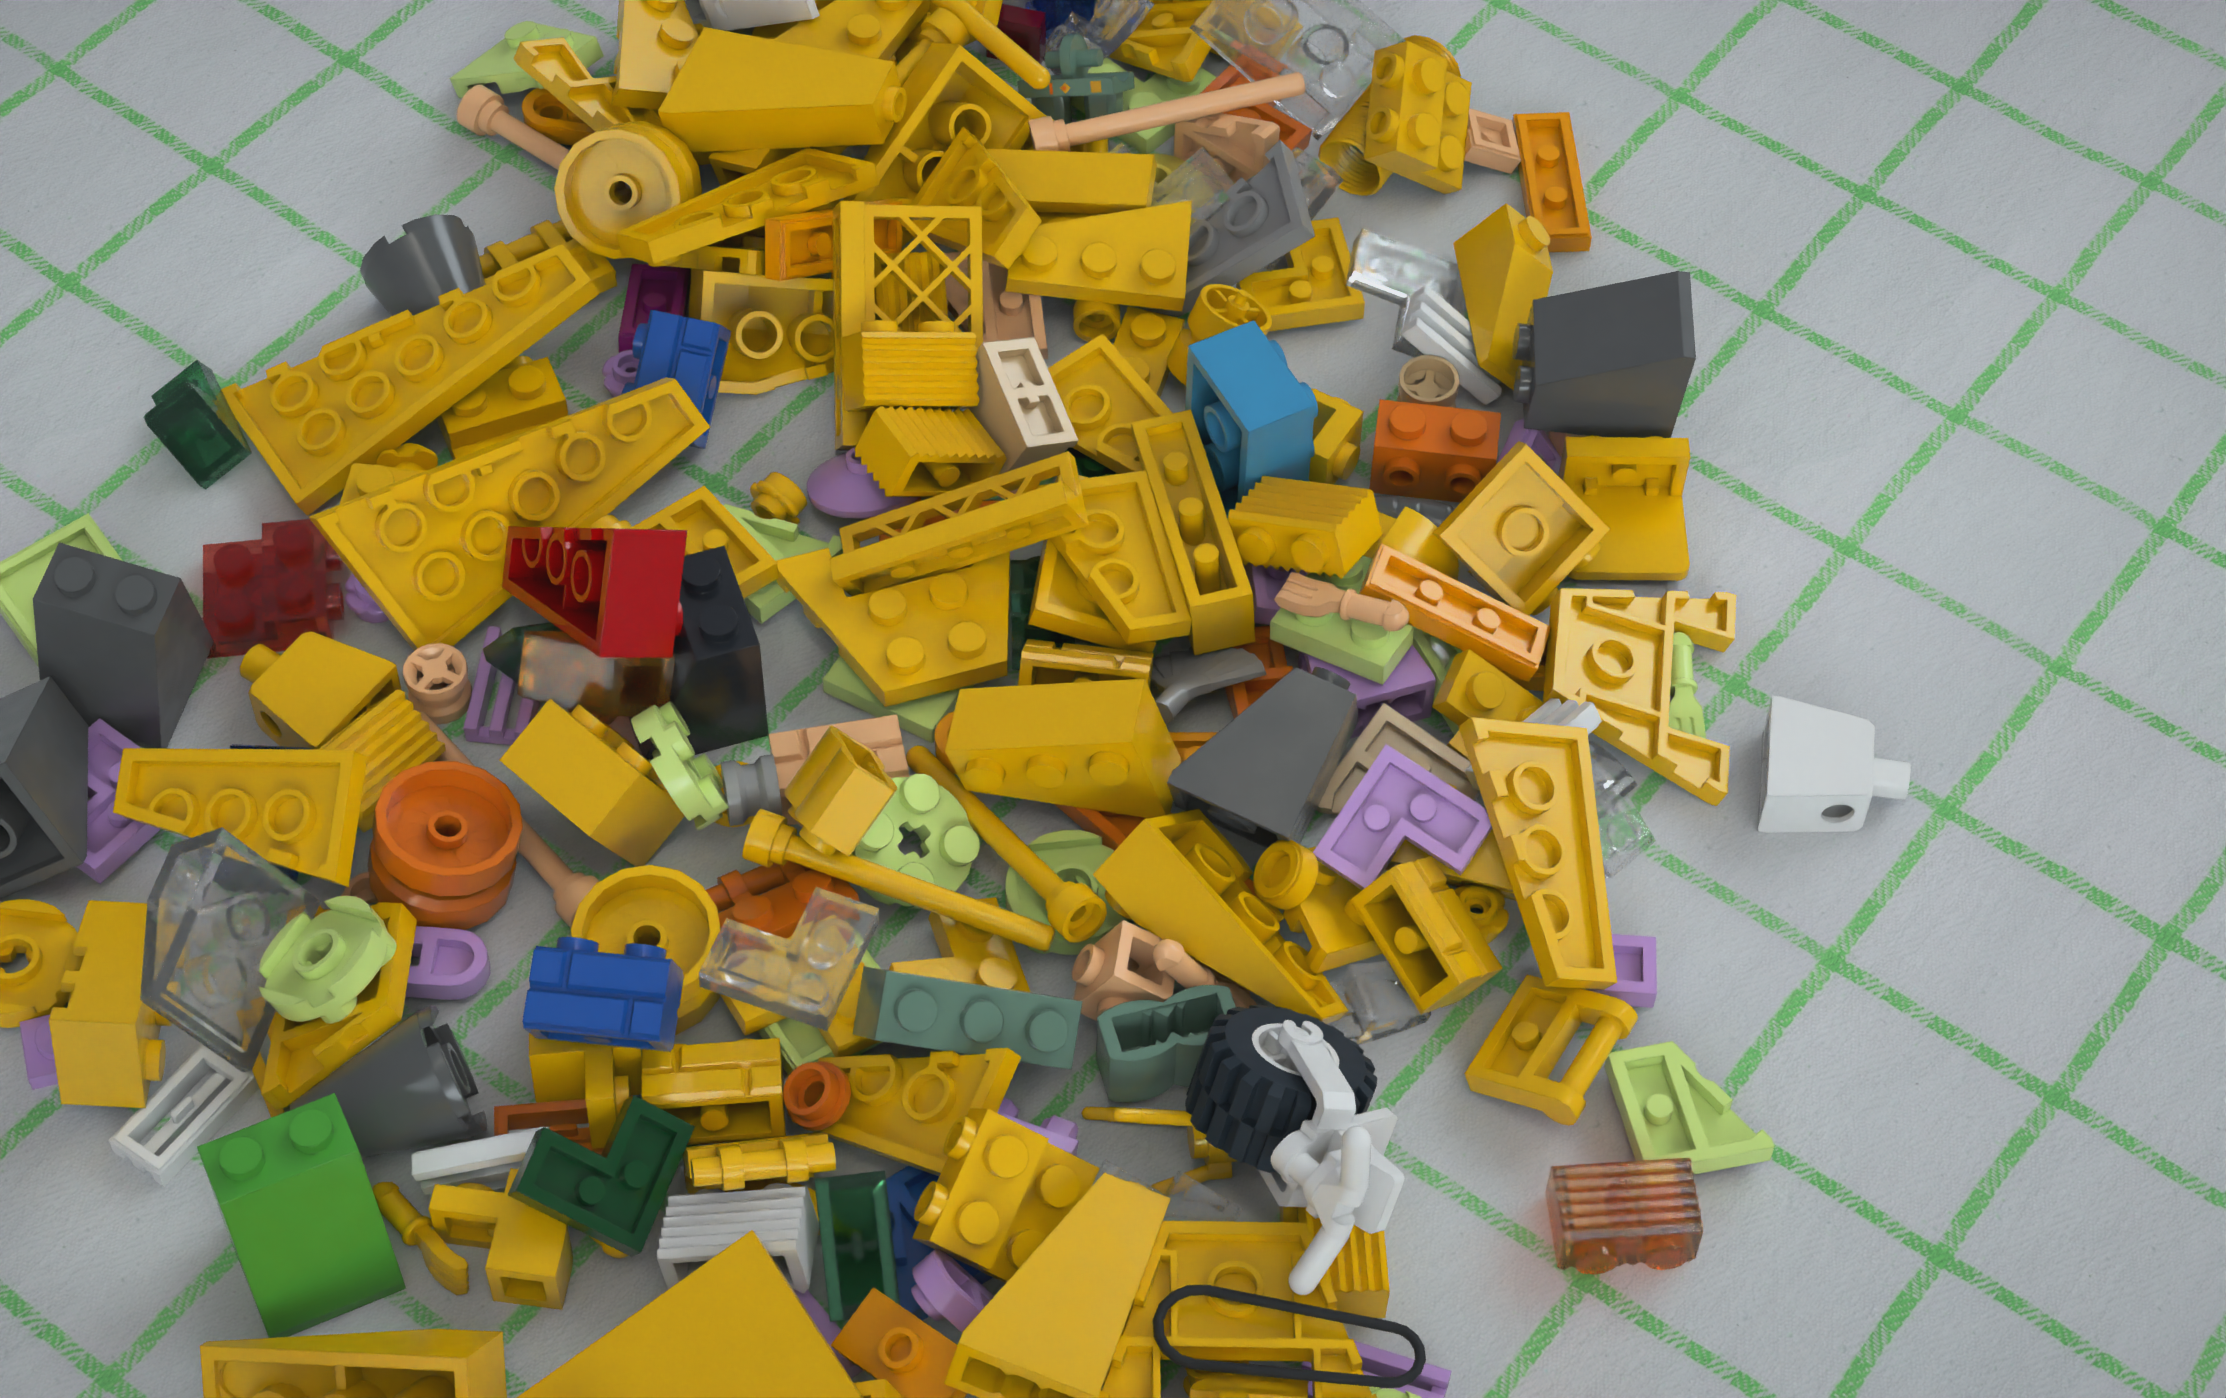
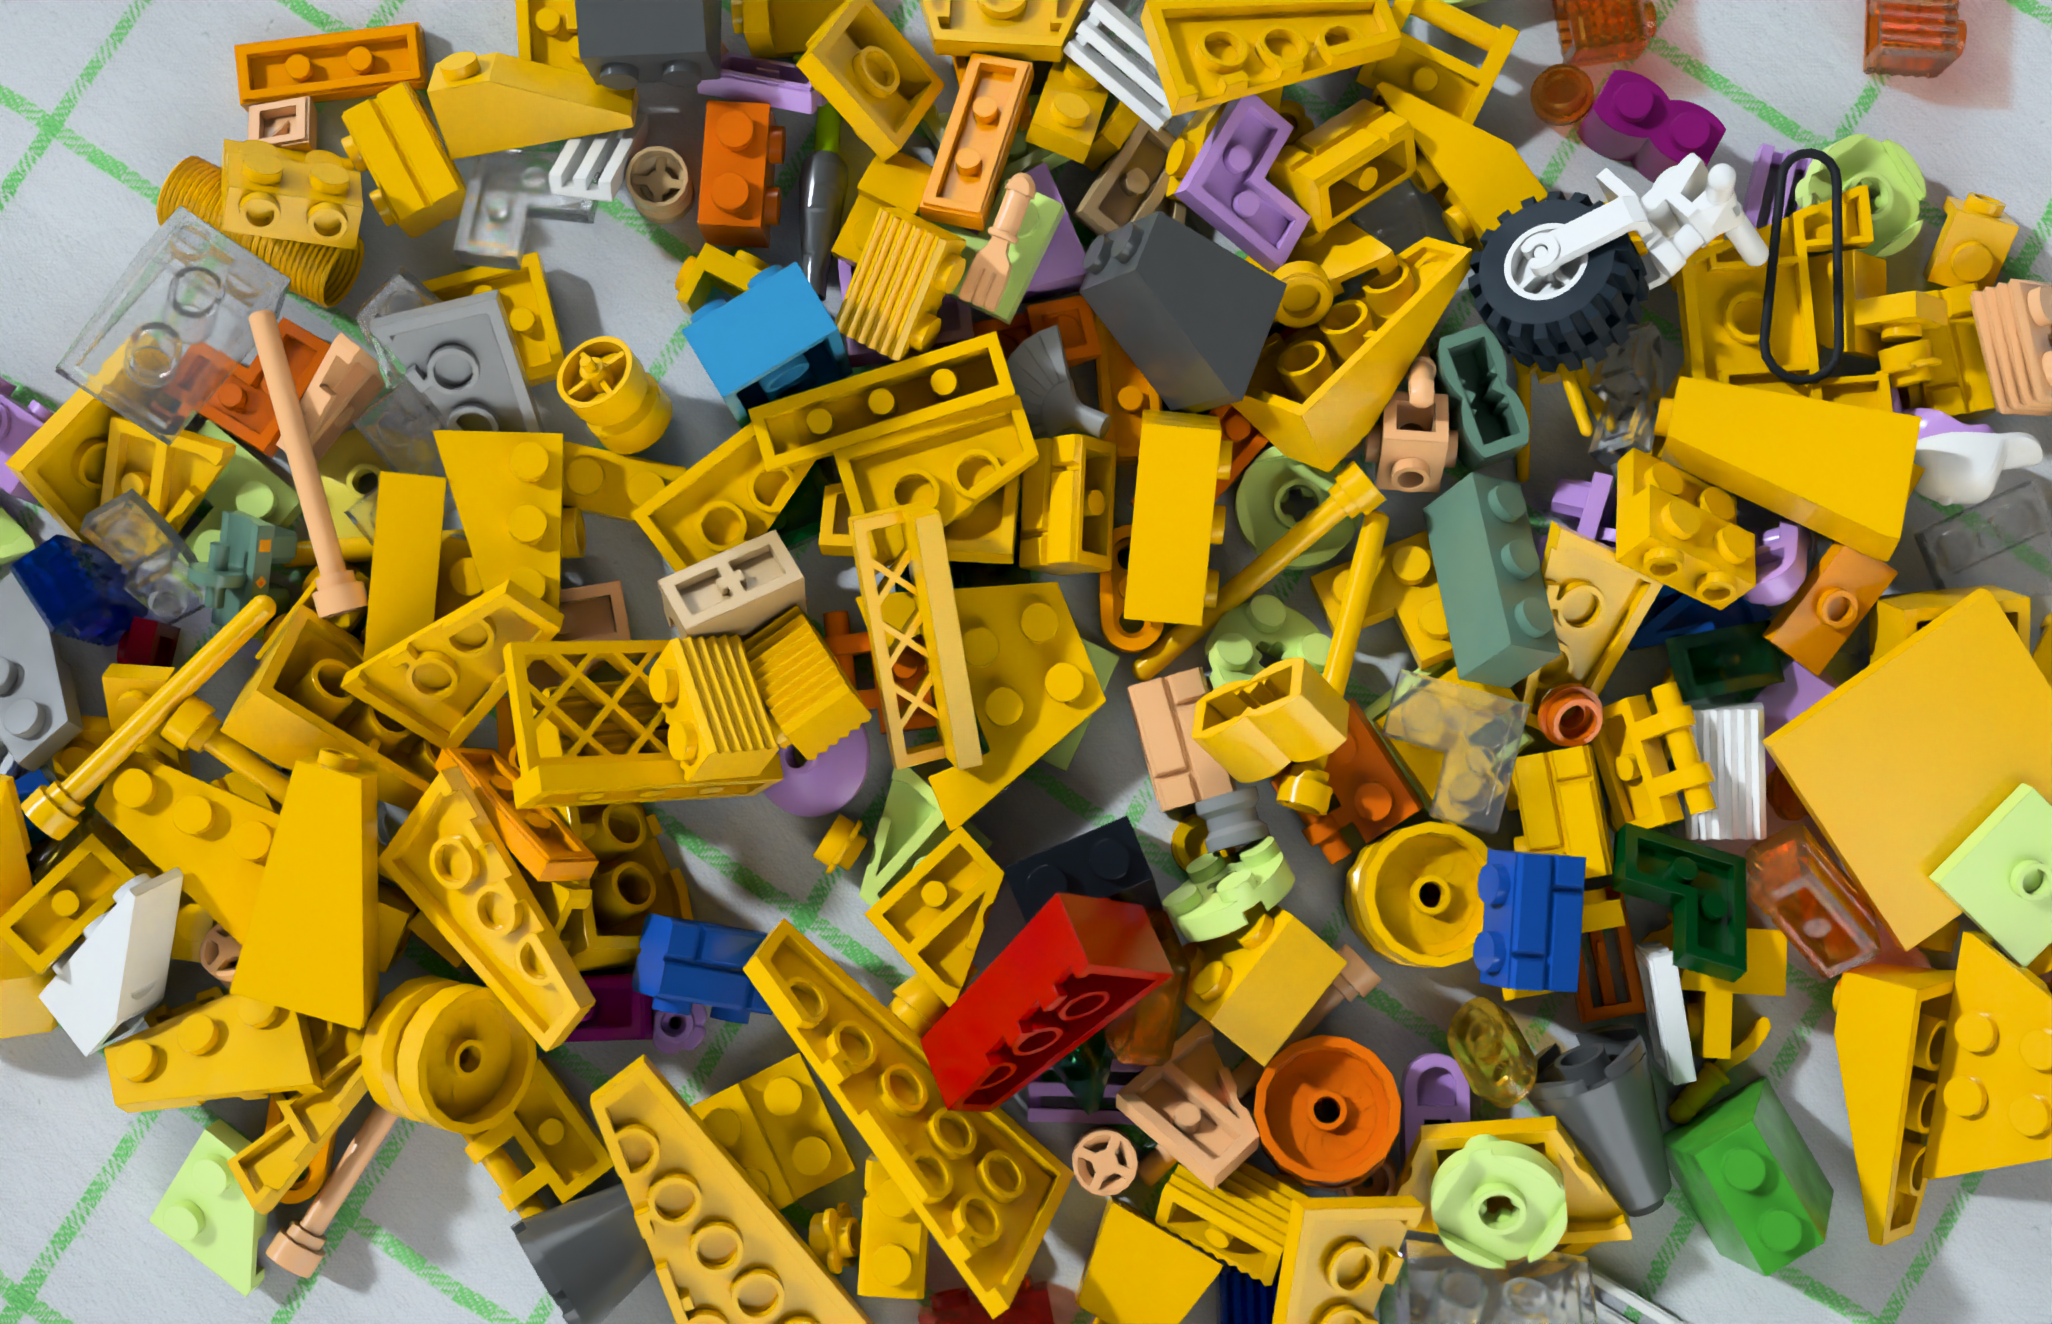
camera: 90 degrees left, 30 degrees up
(458, 988) = (1492, 1053): none -> clear yellow plate
(465, 725) = (1193, 1108): none -> light nougat wing
(581, 1294) = (1812, 901): none -> clear orange brick
(1426, 1060) = (1462, 167): none -> yellow slope
(1445, 211) = (406, 159): none -> yellow brick
(1464, 1246) = (1642, 125): none -> magenta brick
(1512, 1173) = (1562, 95): none -> clear orange plate

